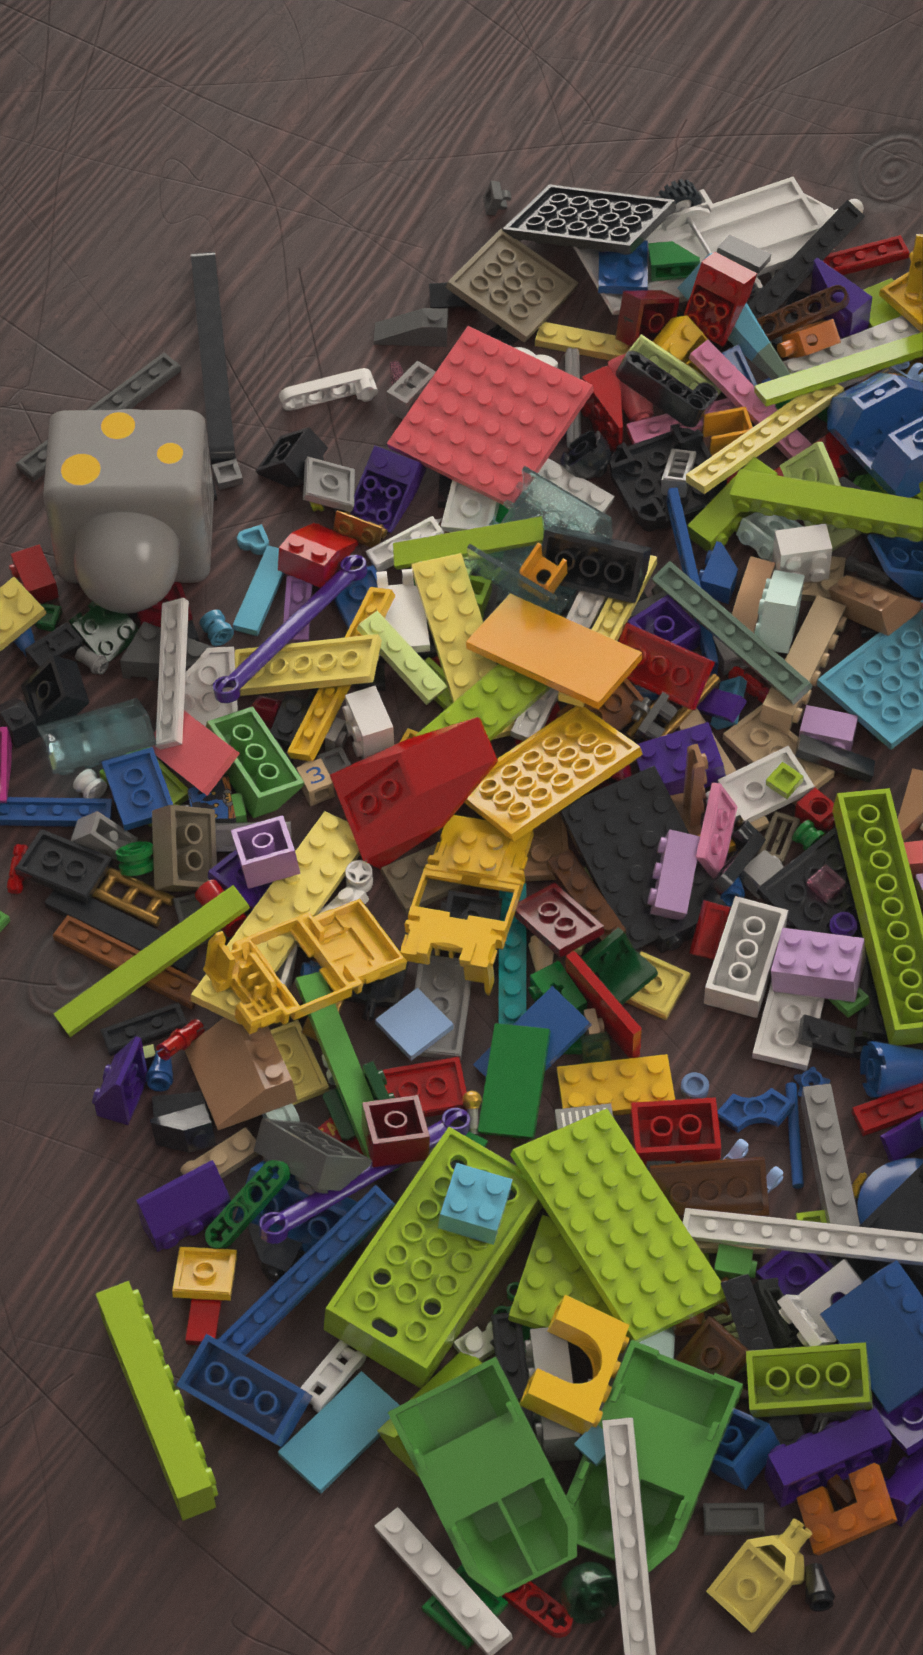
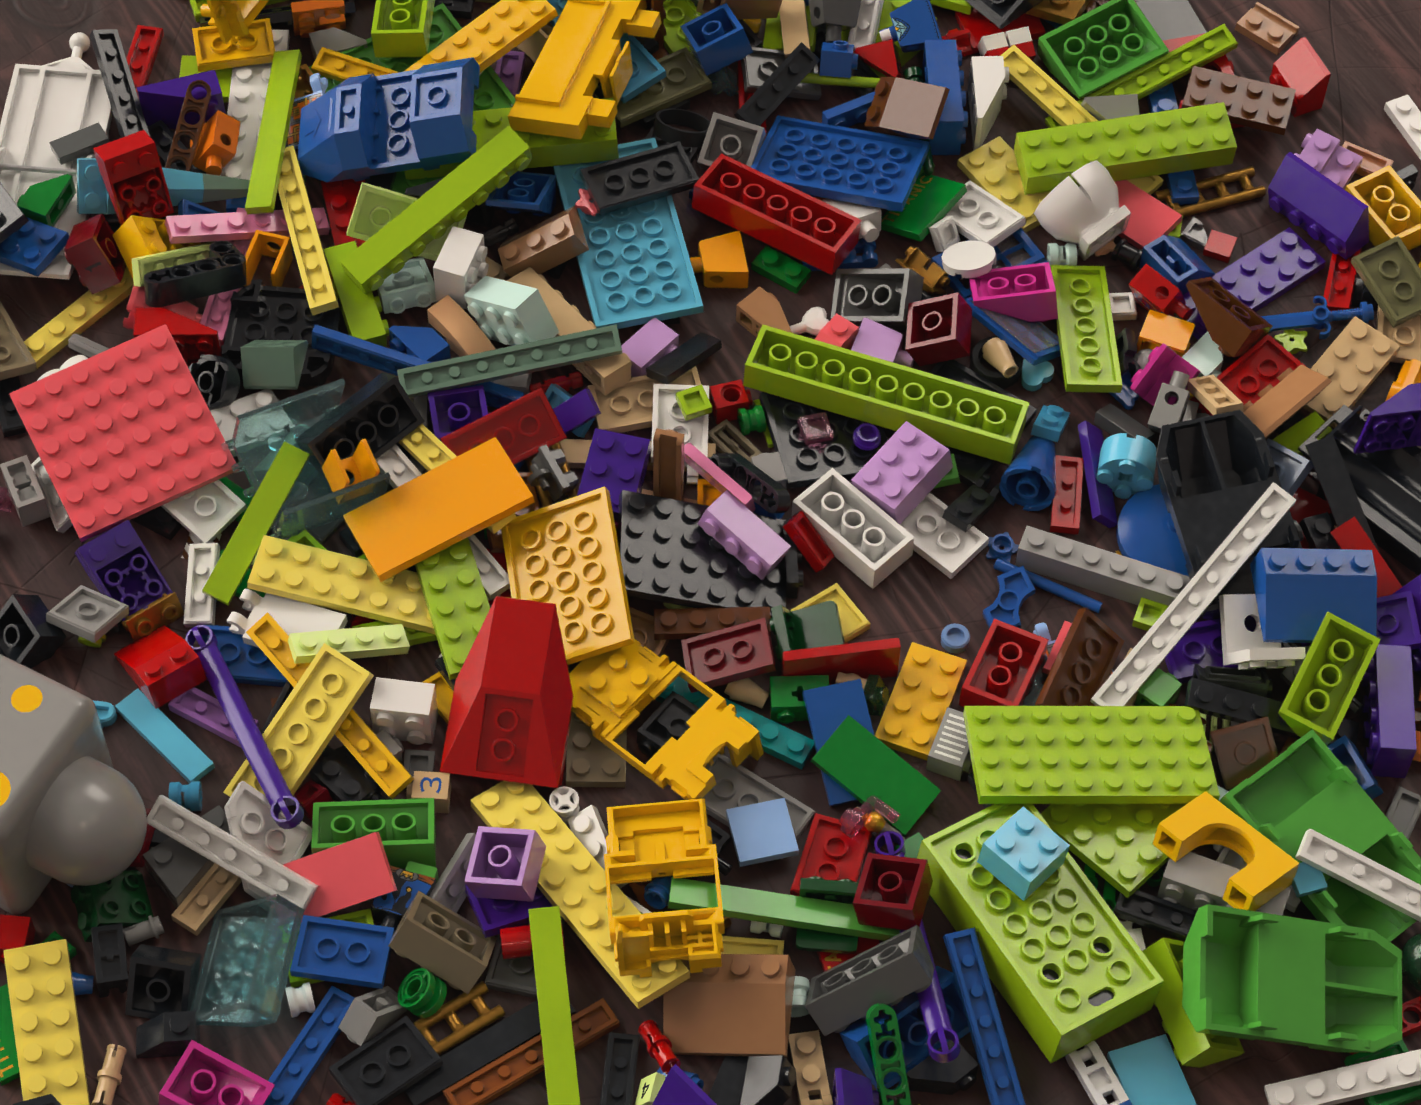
camera: 65 degrees left, 0 degrees up
(133, 684) = (206, 899): none -> tan plate
(461, 1082) = (853, 820): none -> clear pink plate
(630, 481) = (273, 363): none -> sand green slope
(675, 472) = (299, 330): light grey slope -> none

